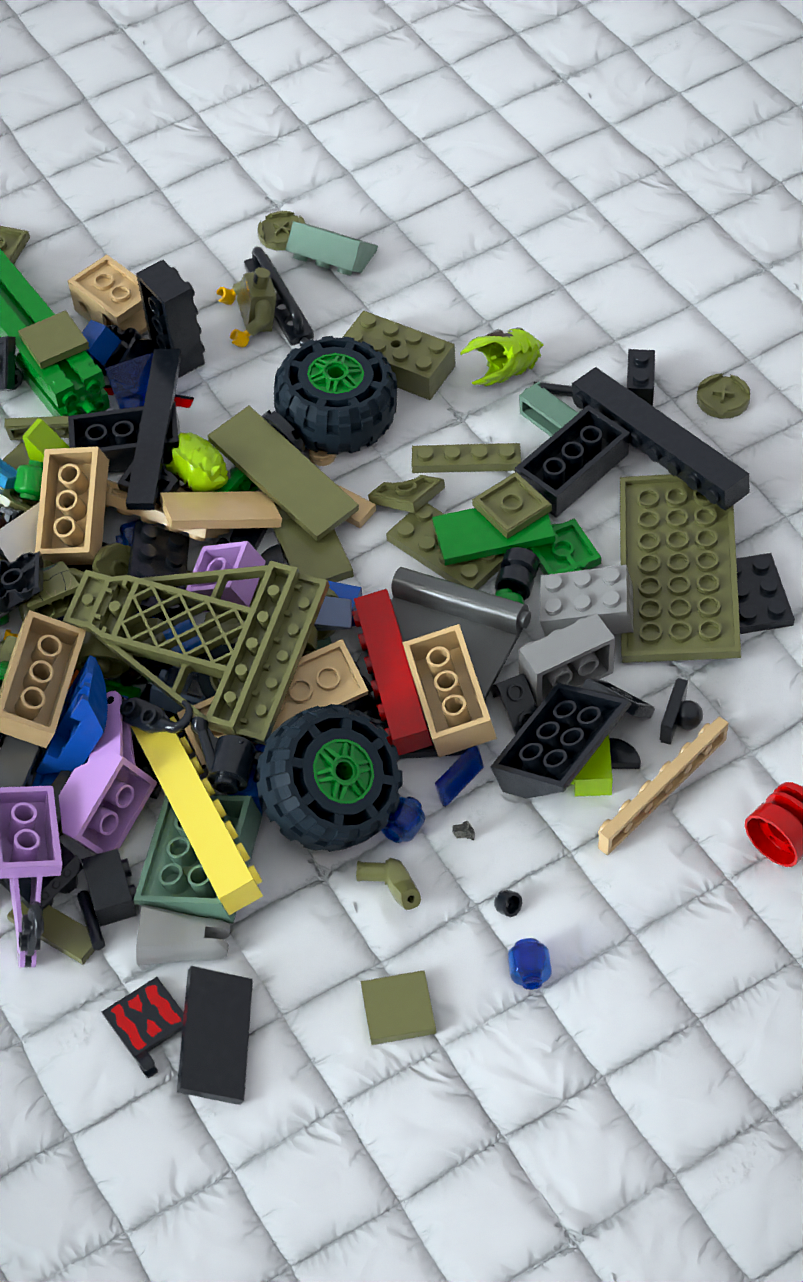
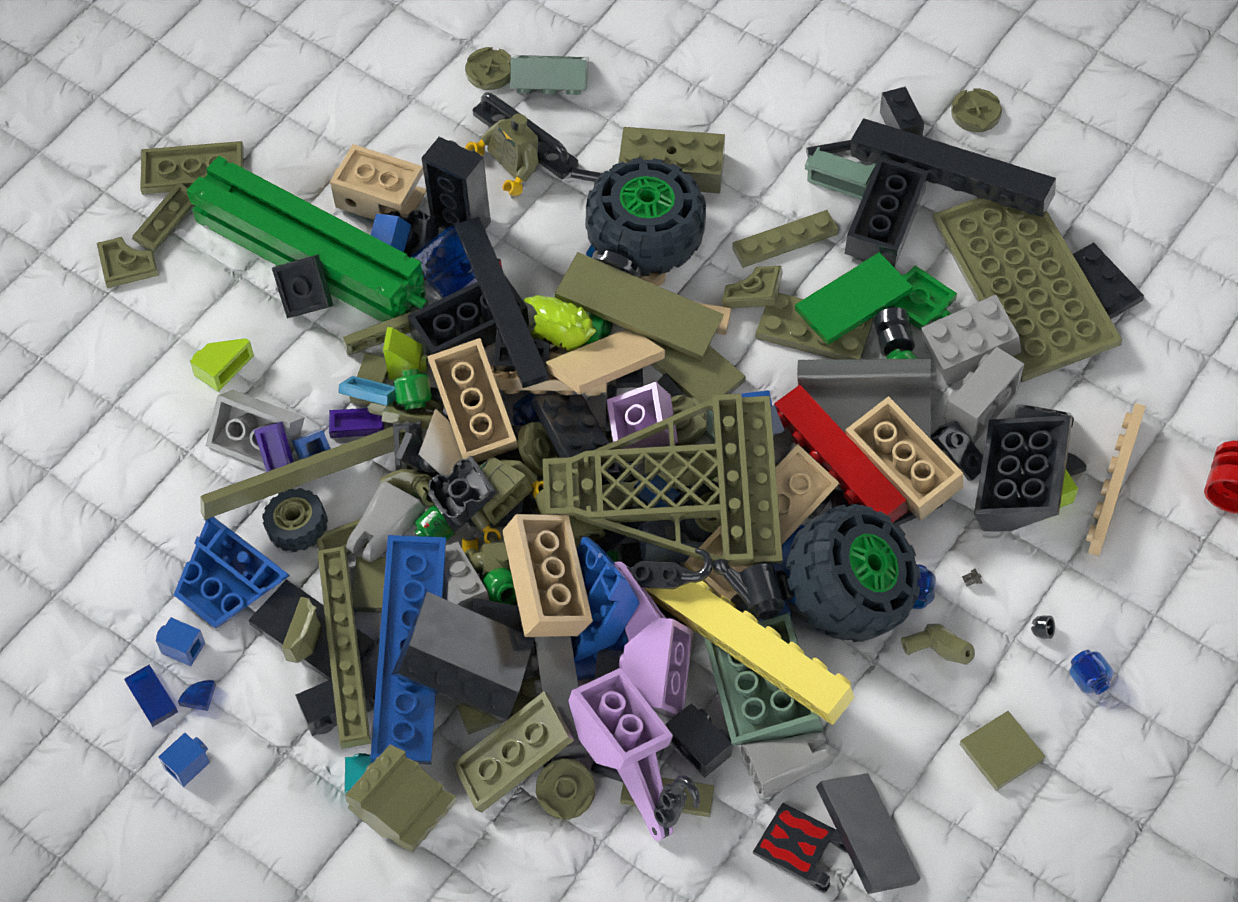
camera: 25 degrees left, 5 degrees up
(53, 339) = (357, 245): olive tile -> none
(91, 920) = (699, 775): black piece -> none
(459, 775) = (943, 531): clear blue tile -> none
(506, 353) = (772, 131): lime head -> none
(511, 505) = (861, 271): olive tile -> none
(679, 712) = (1095, 410): black tile -> none

